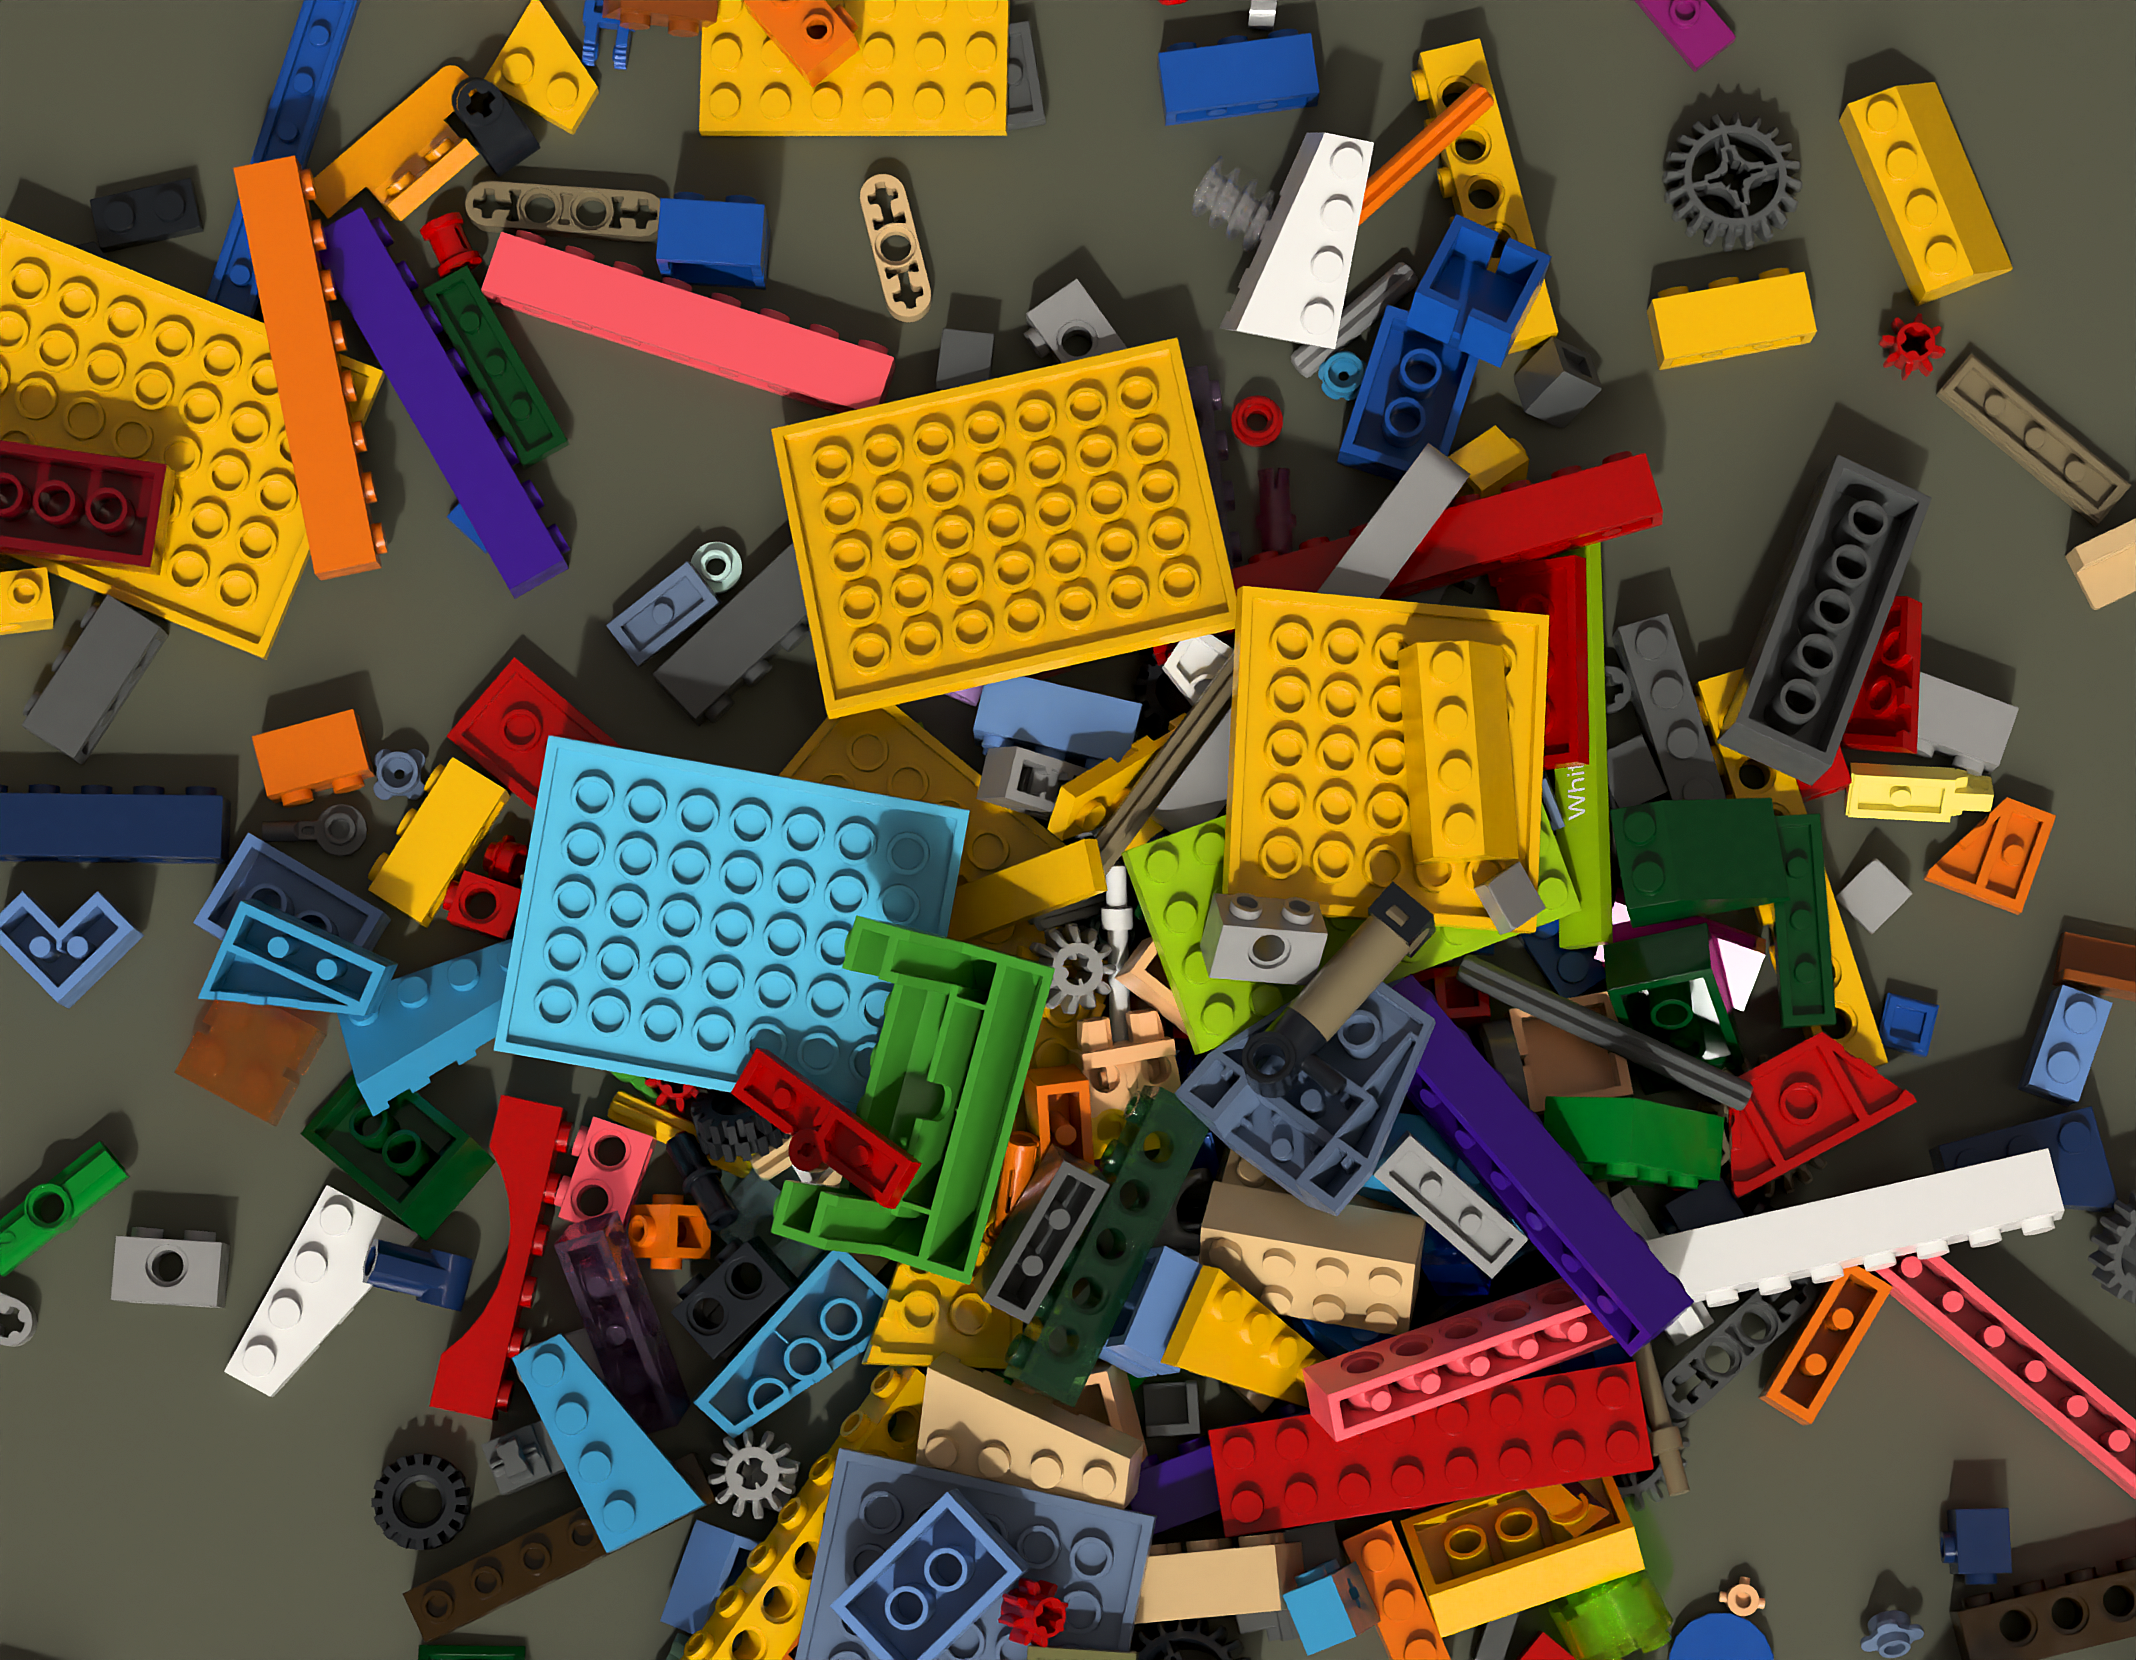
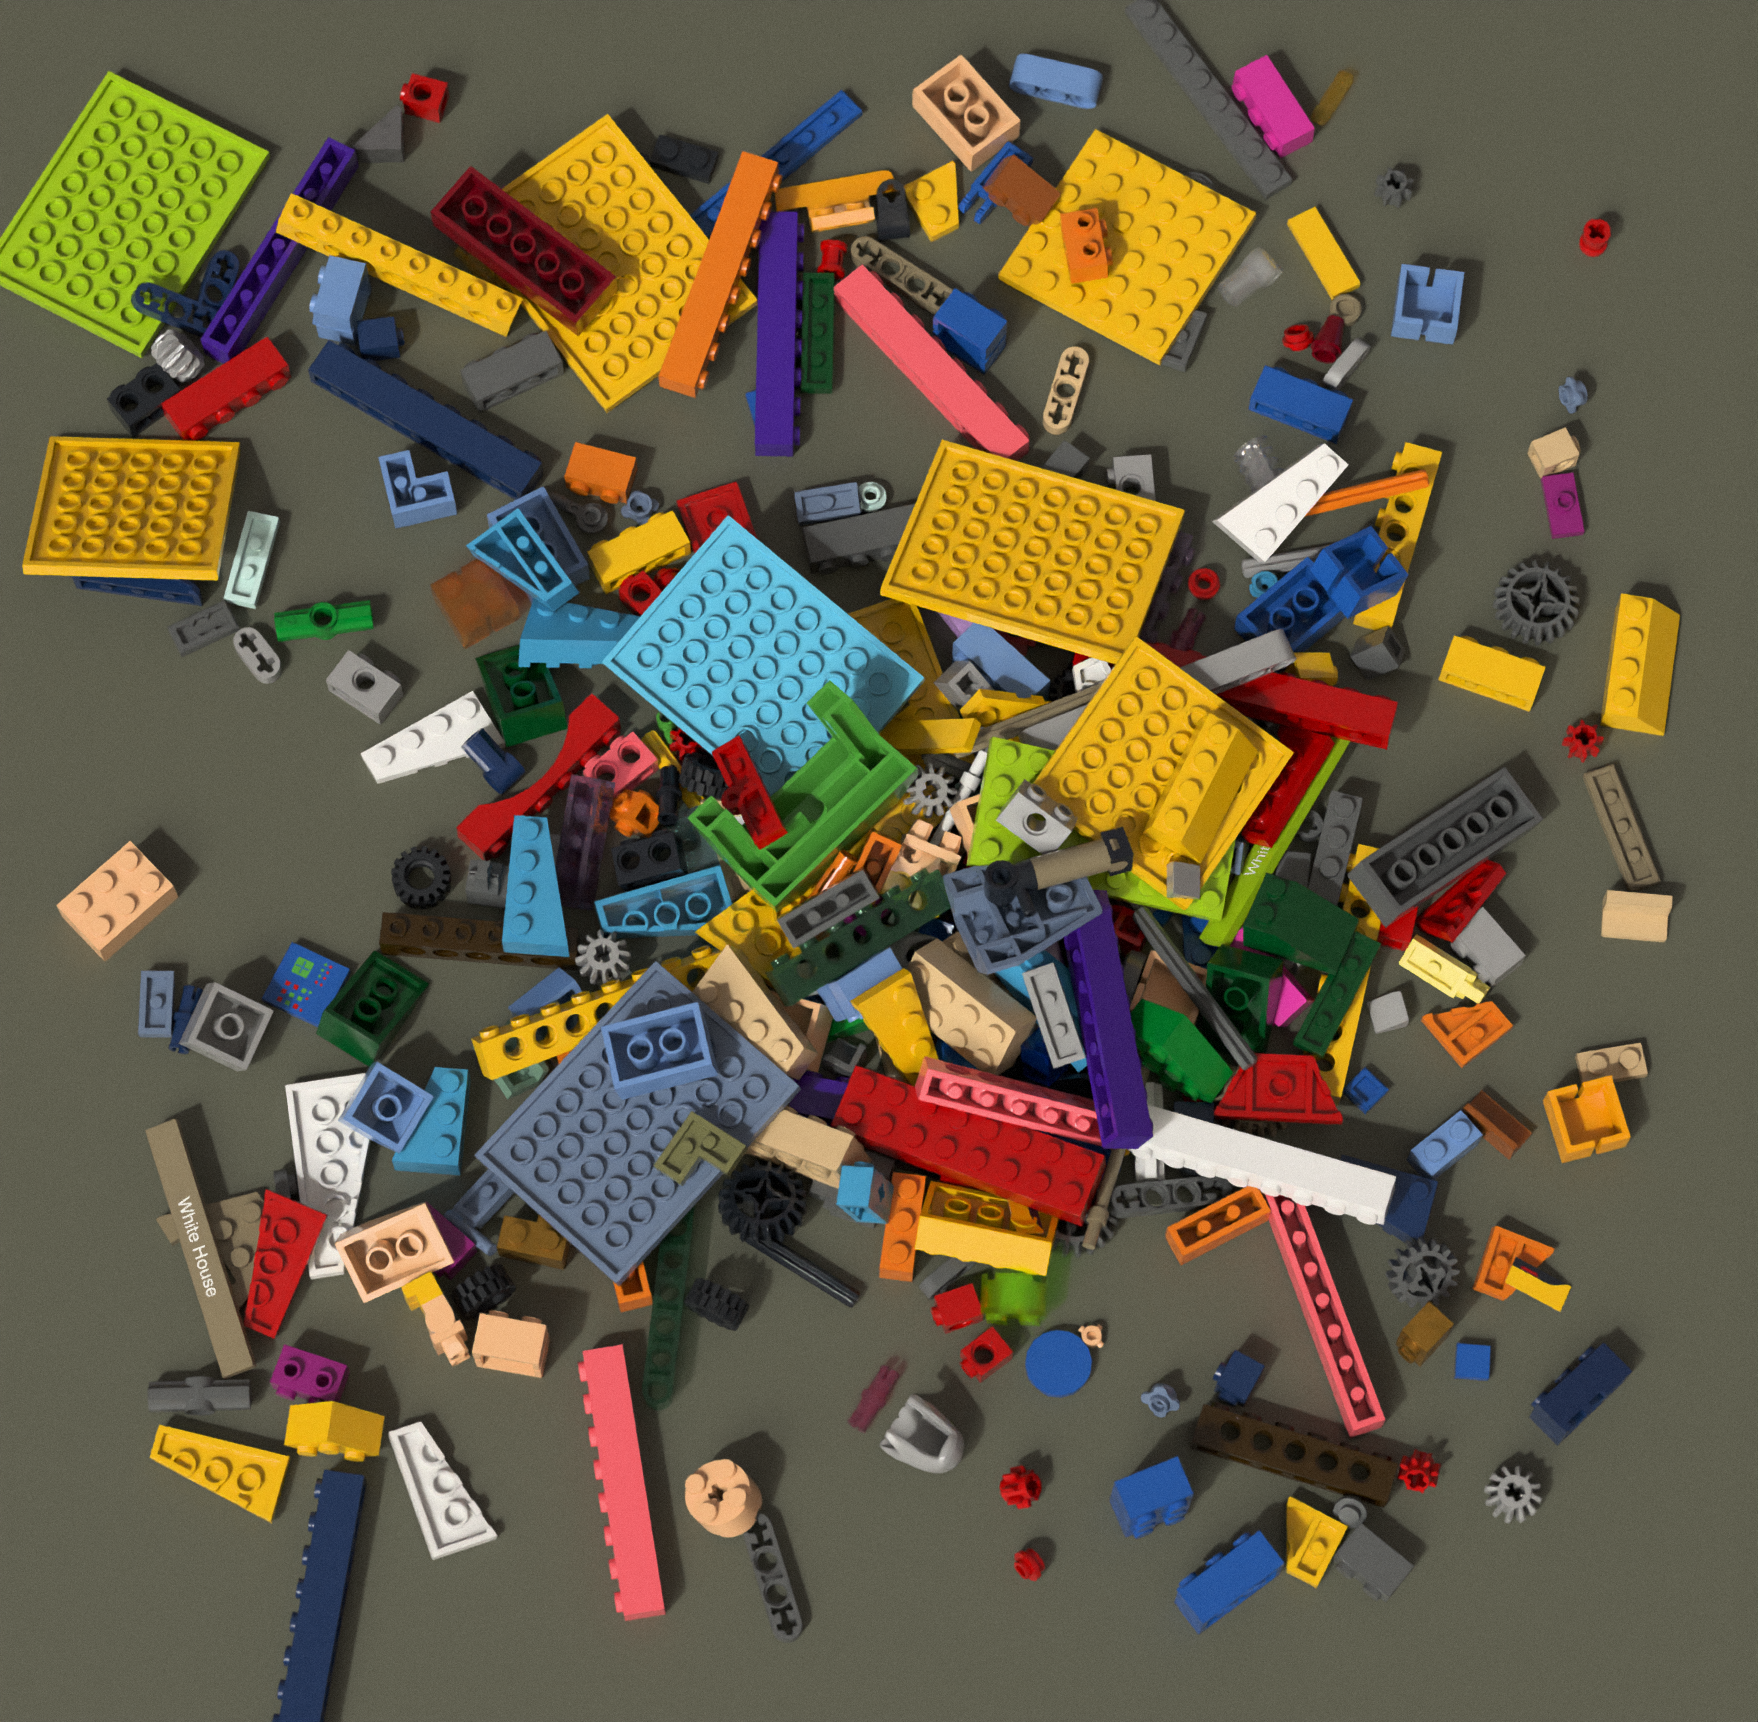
camera: 30 degrees right, 10 degrees down
(1033, 1612) = (713, 1098): red gear -> none

